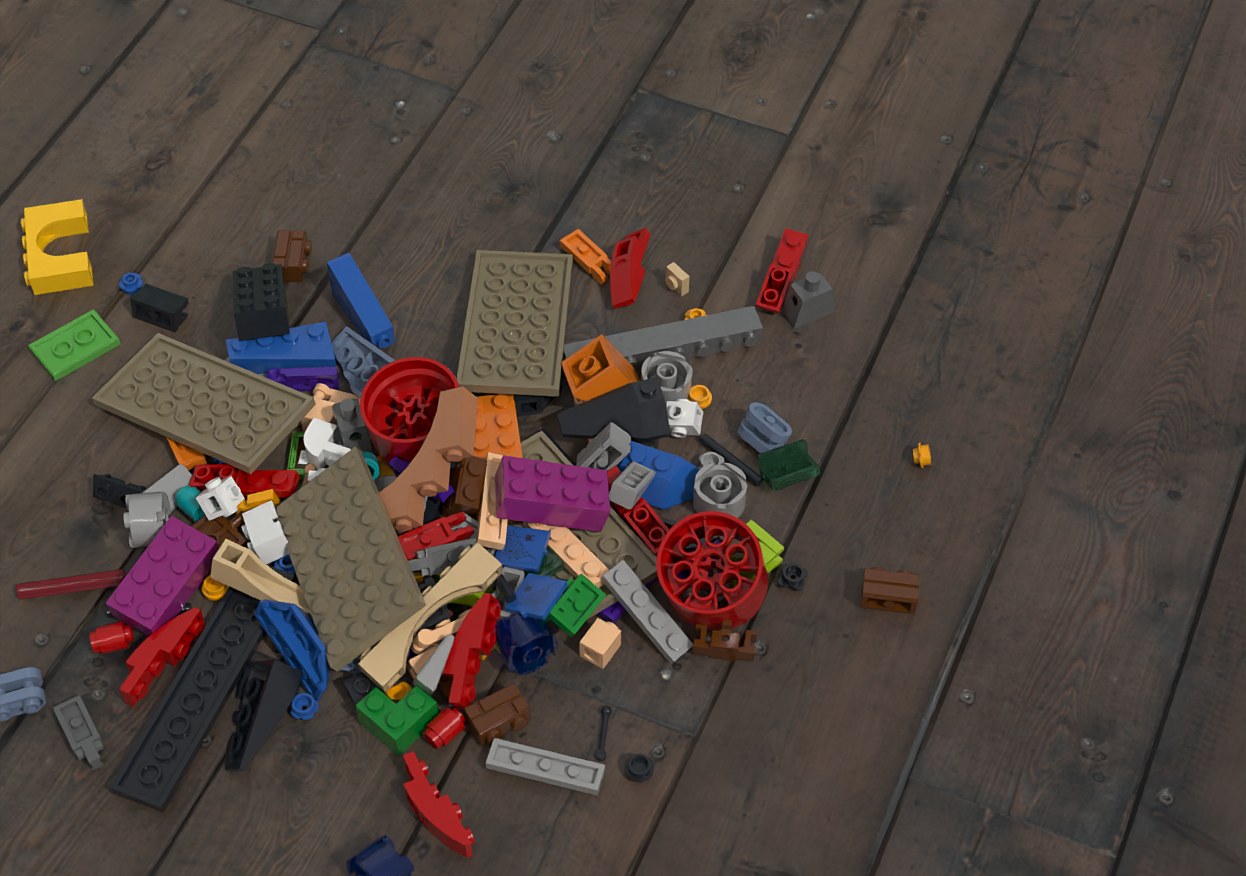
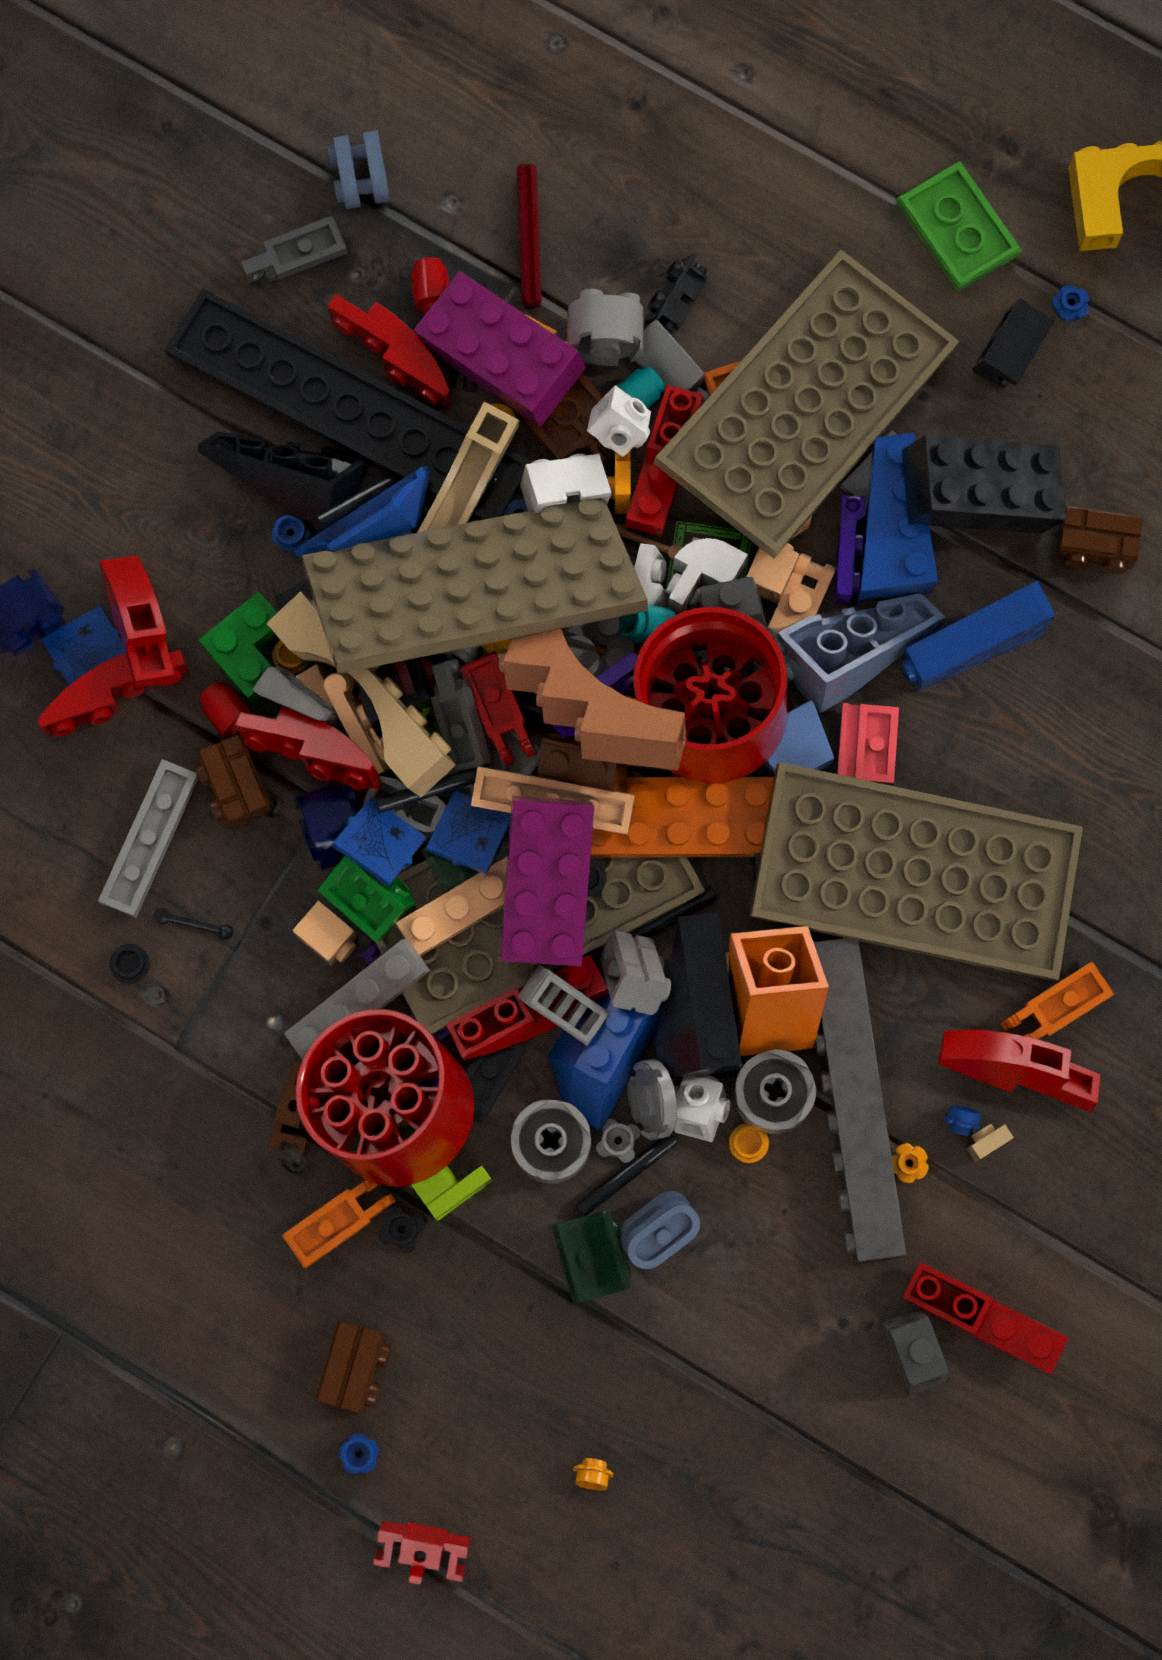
camera: 100 degrees right, 25 degrees up
(282, 656) = (353, 502): none -> black bar
(371, 787) = (138, 620): none -> red slope
(406, 831) = (83, 644): none -> blue piece
(443, 352) = (868, 742): none -> coral plate
(665, 294) = (963, 1120): none -> blue plate
(684, 437) = (652, 1099): none -> light grey tile
(797, 614) = (334, 1224): none -> orange hinge
(946, 577) = (366, 1462): none -> blue plate
(989, 539) = (423, 1538): none -> red piece

